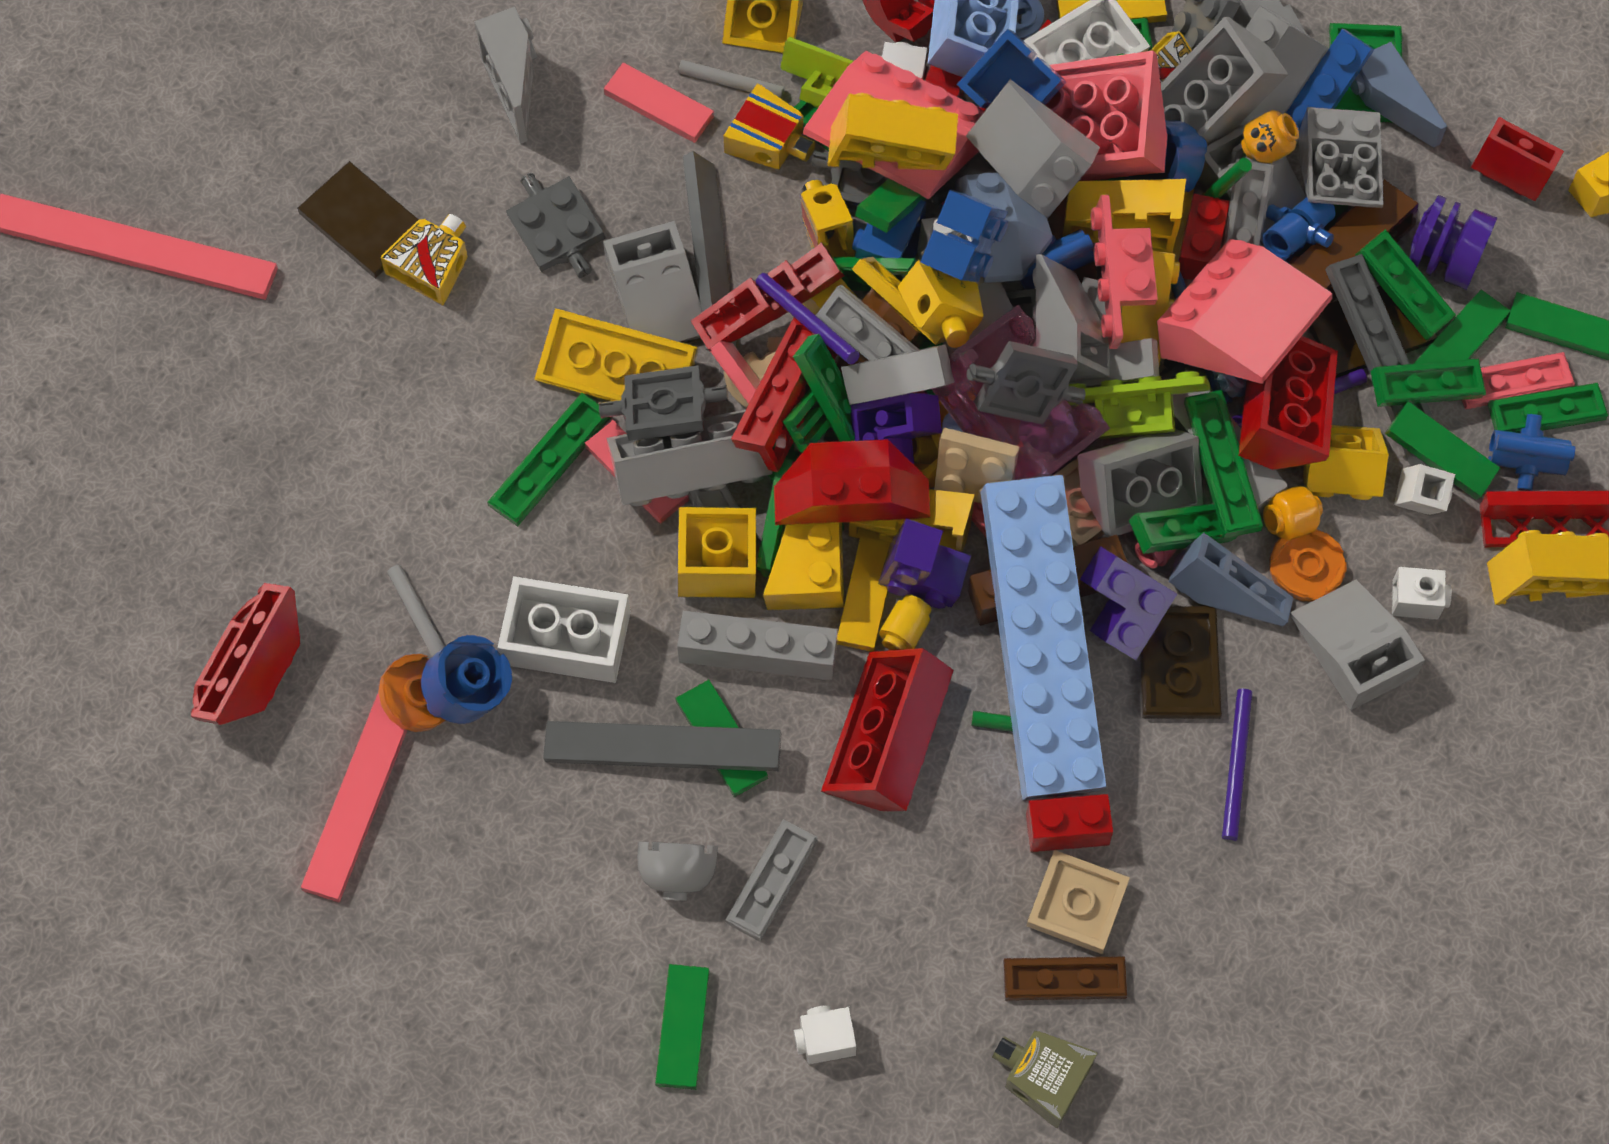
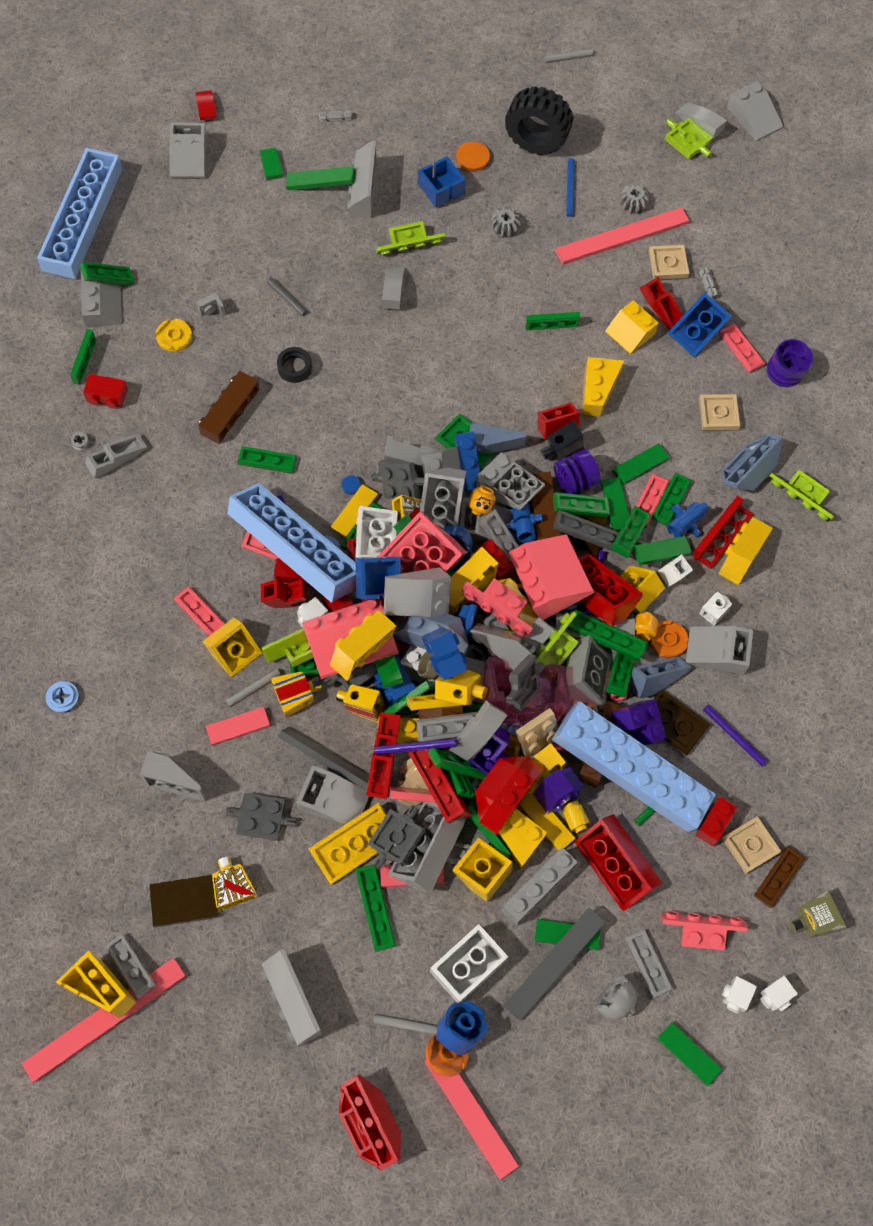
camera: 55 degrees left, 0 degrees up
(164, 197) = (97, 984): none -> yellow wedge
(223, 221) = (130, 966): none -> light grey tile
(335, 442) = (291, 999): none -> light grey slope
(873, 1092) = (778, 994): none -> white brick
(885, 922) = (704, 931): none -> coral bracket
(1229, 179) = (485, 533): green bar -> none
(1490, 188) = (564, 442): none -> black torso

